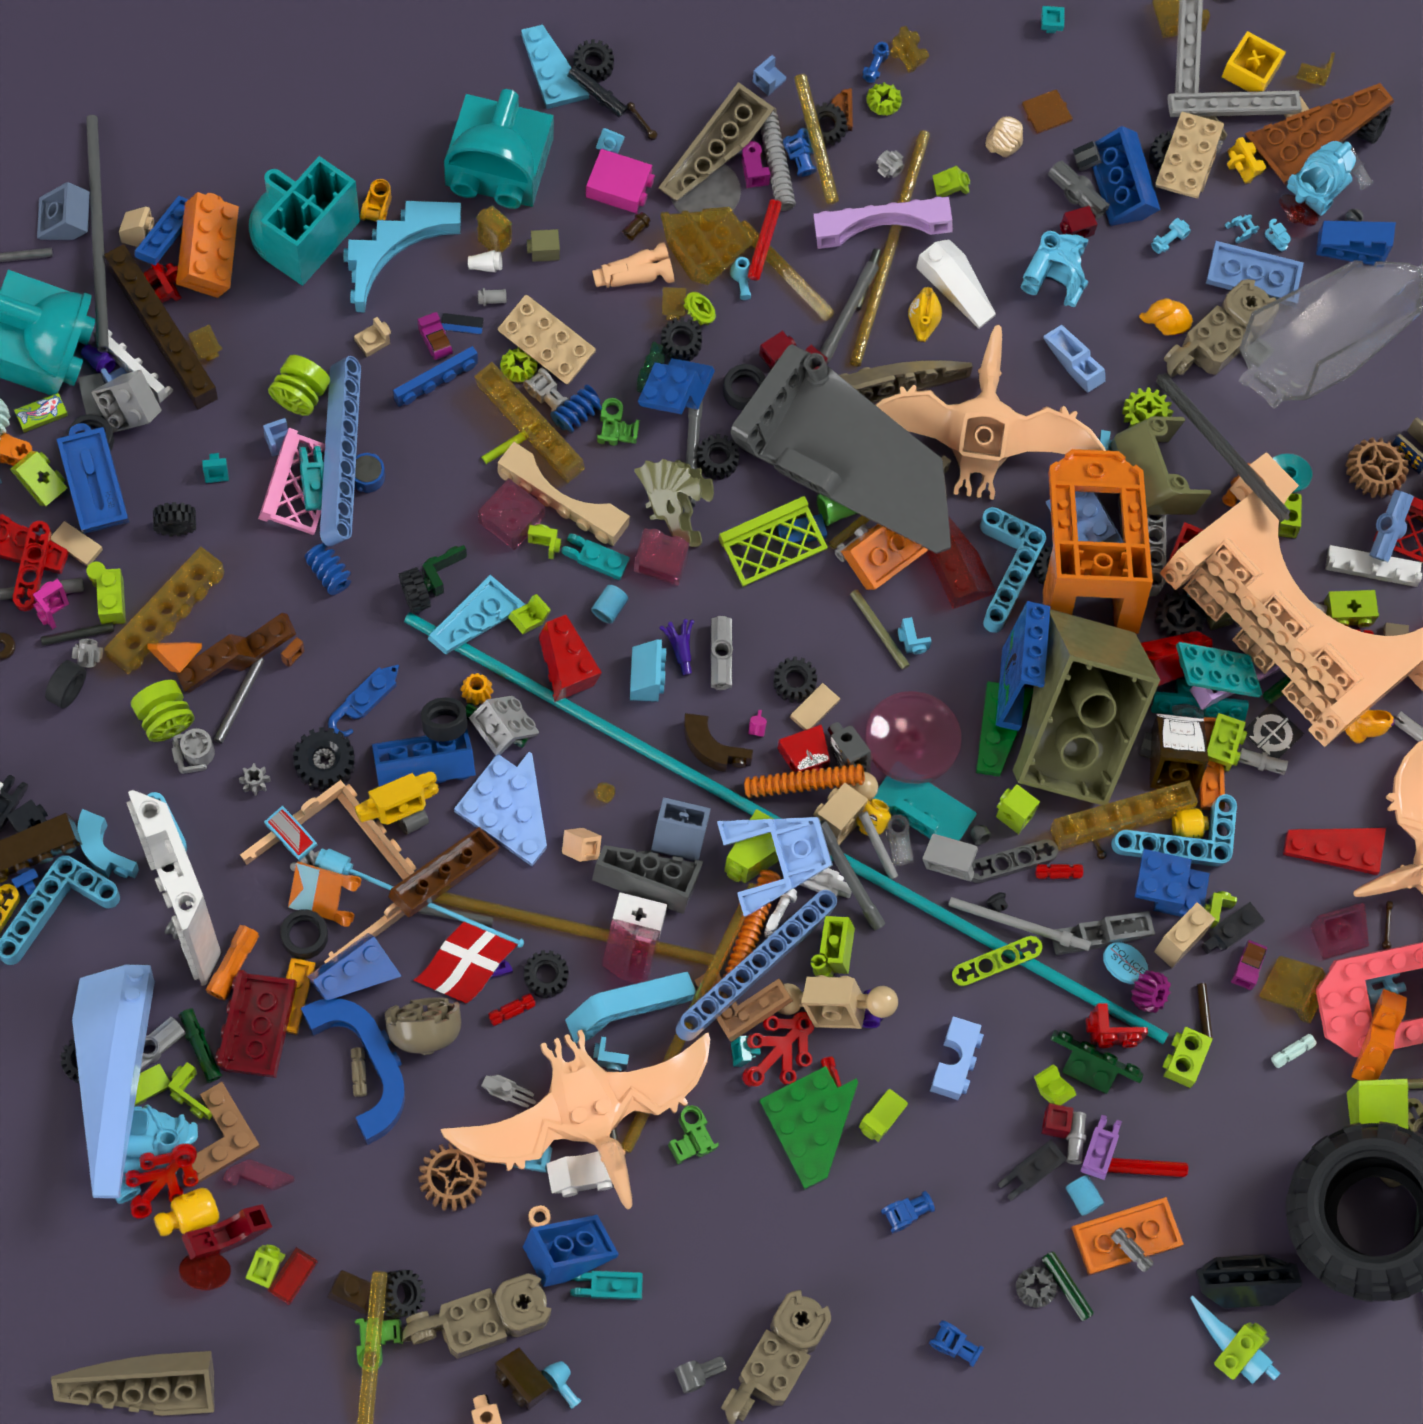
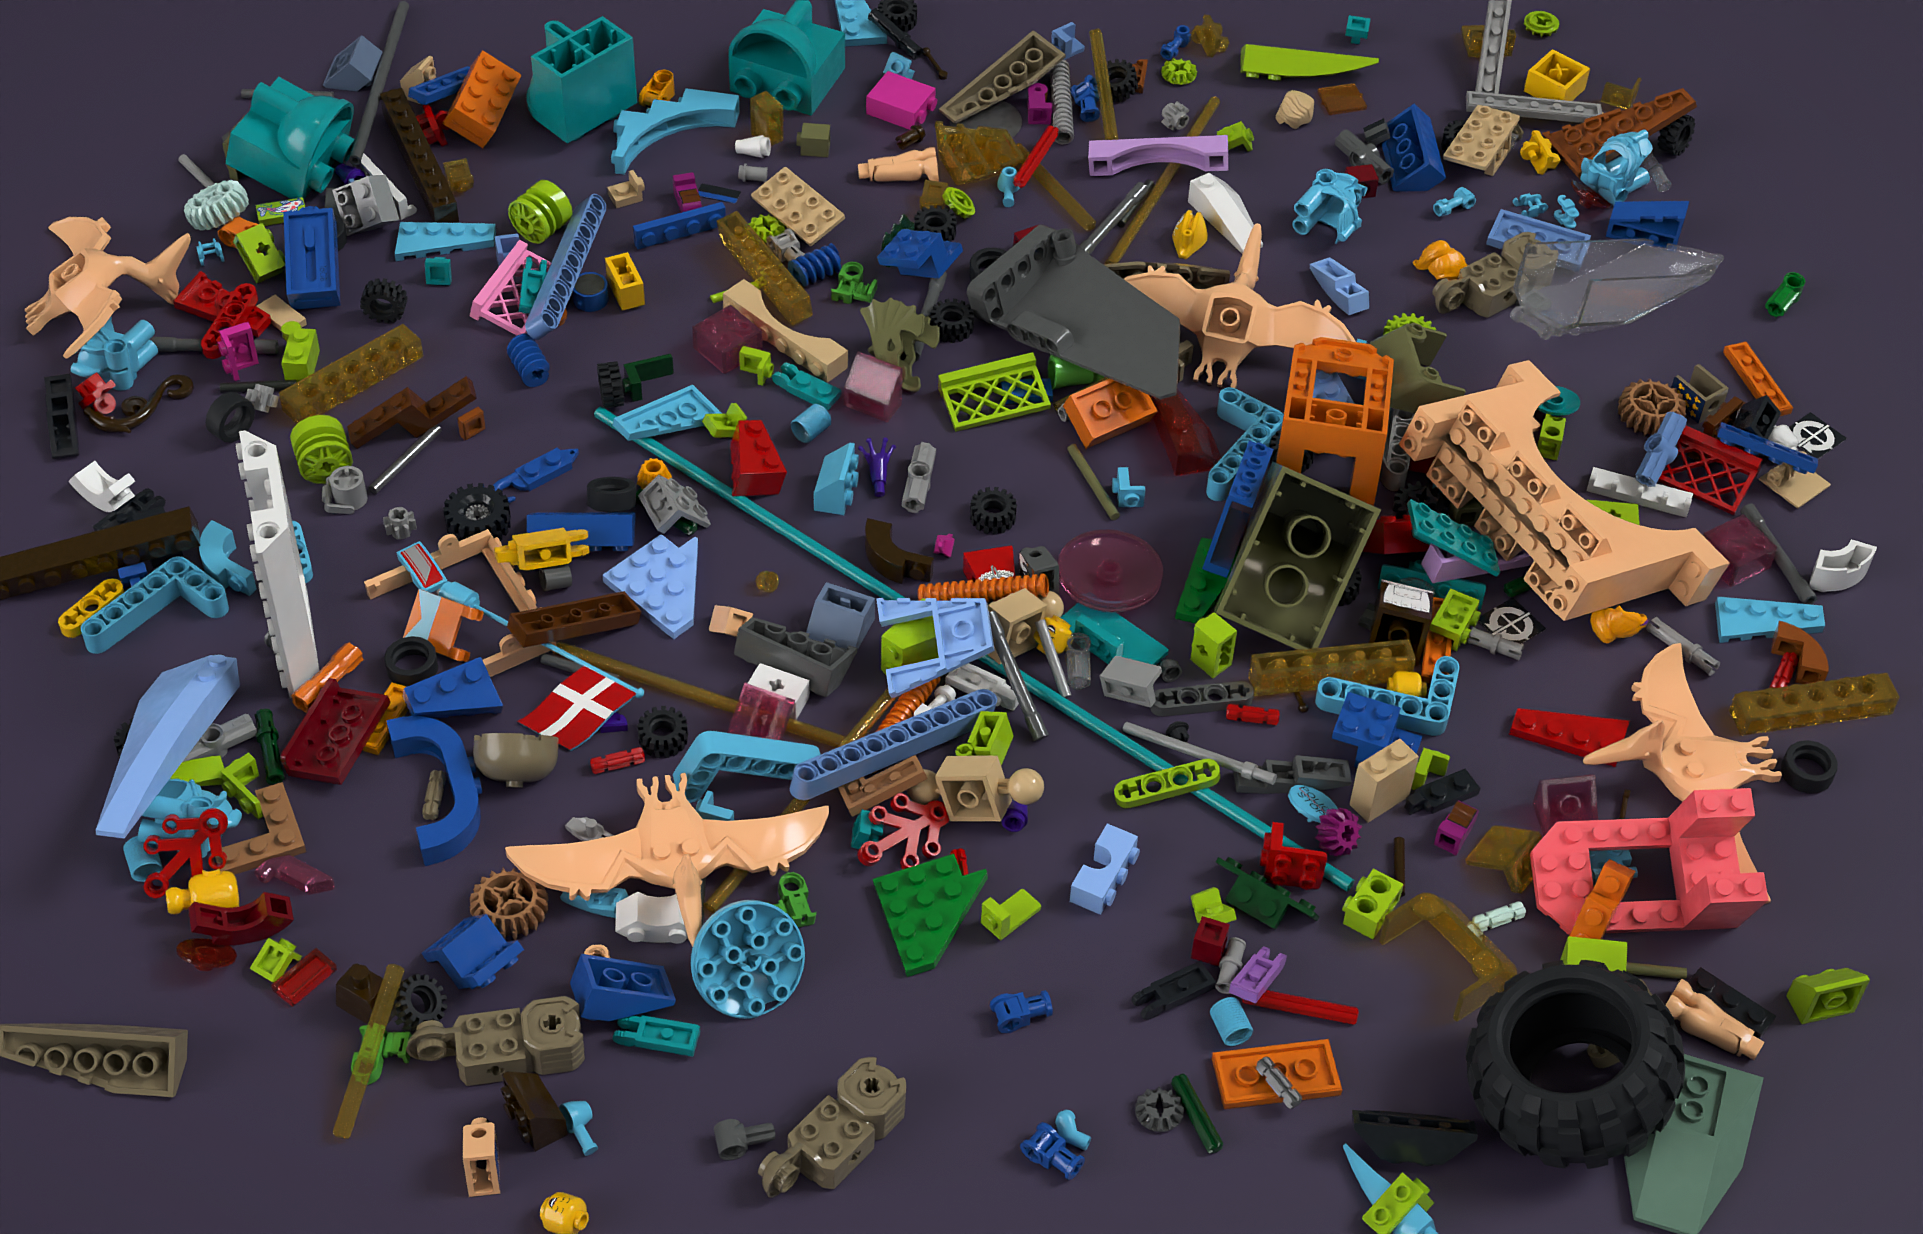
camera: 15 degrees right, 20 degrees down
(175, 655) = (348, 406): orange slope -> none
(194, 425) = (428, 237): none -> medium azure wing
(399, 459) = (625, 281): none -> yellow brick
(435, 1234) = (473, 952): none -> blue bracket
(673, 1207) = (747, 958): none -> medium azure bracket
(815, 707) = (1016, 534): tan tile -> none
(965, 1321) = (1067, 1129): none -> medium azure arm
(985, 77) = (1295, 63): none -> lime wedge
(1223, 447) = (1485, 355): dark grey axle -> none
(1251, 1060) = (1485, 957): none -> clear yellow windscreen

